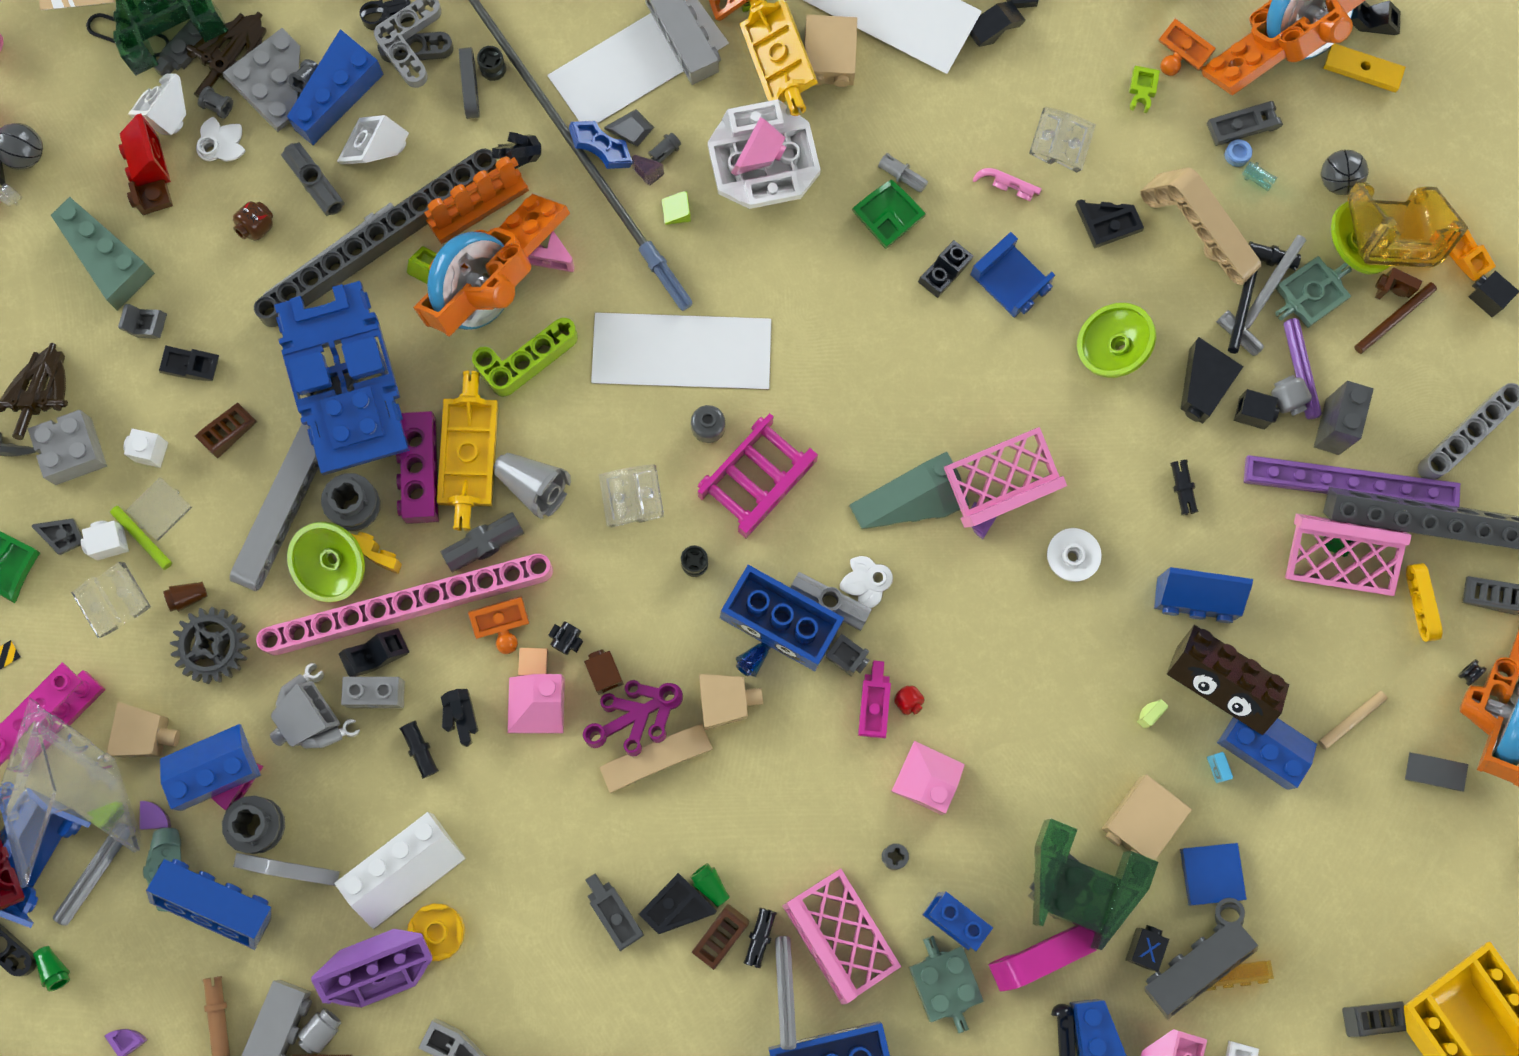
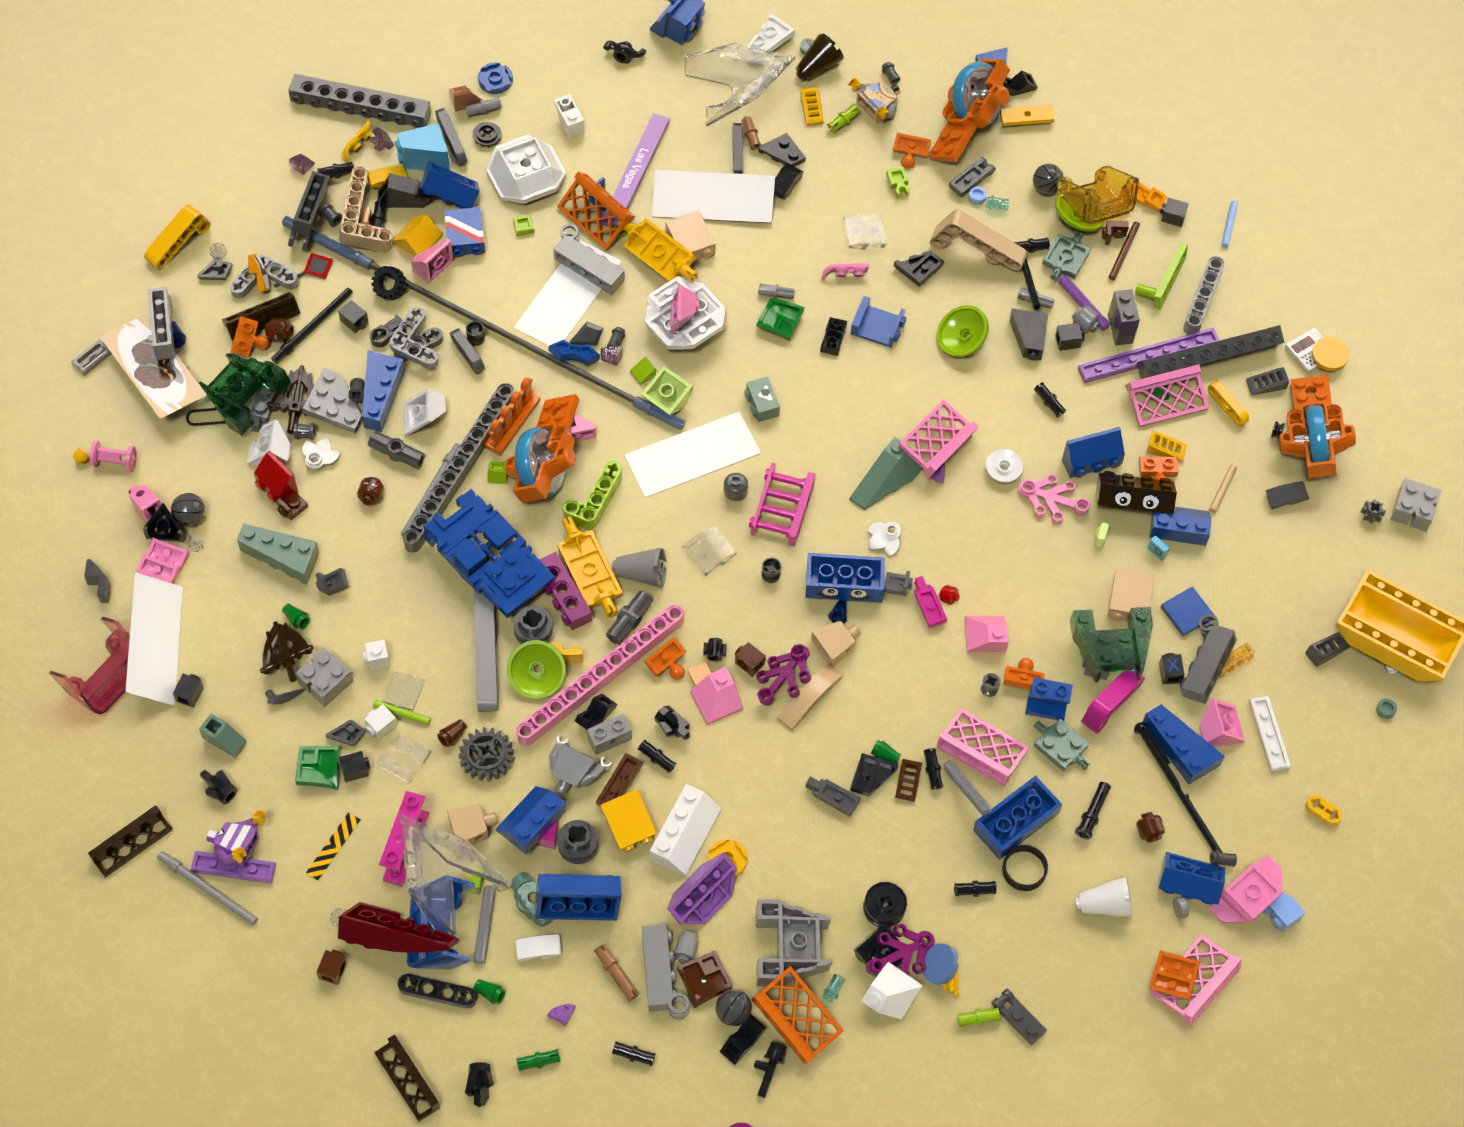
camera: 25 degrees left, 15 degrees down
(42, 584) = (354, 766): none -> black brick
(78, 350) = (297, 617): none -> green cone
(140, 939) = (538, 946): none -> white slope
(153, 816) = (507, 871): medium lavender tile -> none
(189, 364) = (374, 596): black slope -> none
(220, 422) = (422, 637): reddish brown slope -> none
(285, 869) = (609, 854): light grey beam -> none
(331, 824) = (628, 820): none -> yellow panel
(353, 763) = (620, 779): none -> reddish brown plate
(522, 147) = (524, 371): black rock -> none
(687, 254) = (668, 391): none -> yellowish green slope
(806, 316) = (762, 399): none -> brick
(854, 613) = (890, 555): light grey piece -> none
(944, 867) = (1021, 676): none -> orange plate
(1114, 625) = (1051, 496): none -> bright pink plant
(1274, 279) = (1039, 257): light grey bar -> none
(1280, 650) = (1158, 466): none -> orange plate
(1292, 625) = (1168, 441): none -> yellow slope
(1412, 403) = (1160, 294): none -> lime piece

